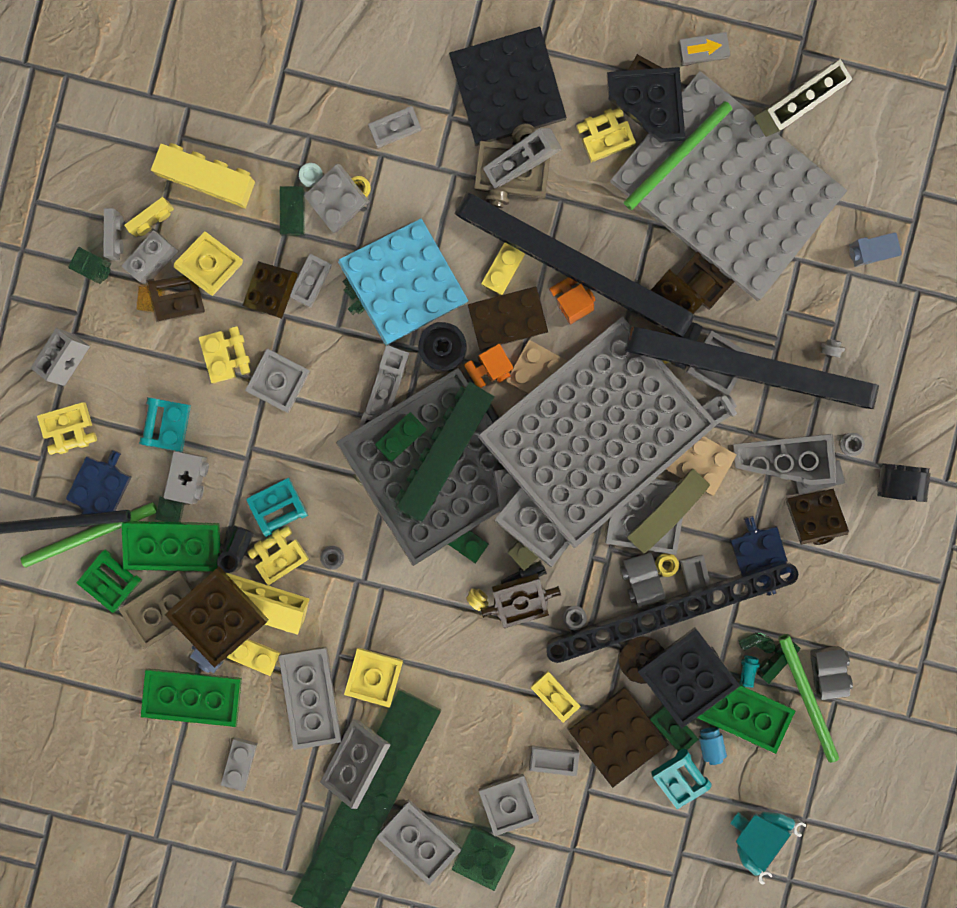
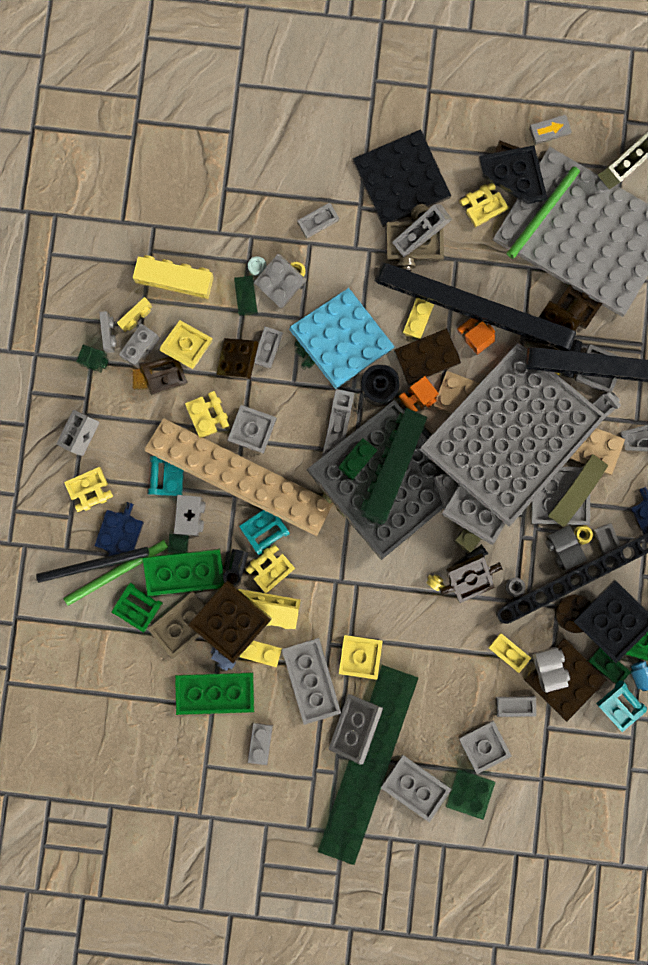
camera: 10 degrees left, 5 degrees down
(253, 437) = (239, 477): none -> tan plate
(325, 560) = (313, 558): flat silver plate -> none
(470, 546) = (422, 540): dark green plate -> none
(601, 725) = (550, 669): none -> light grey brick

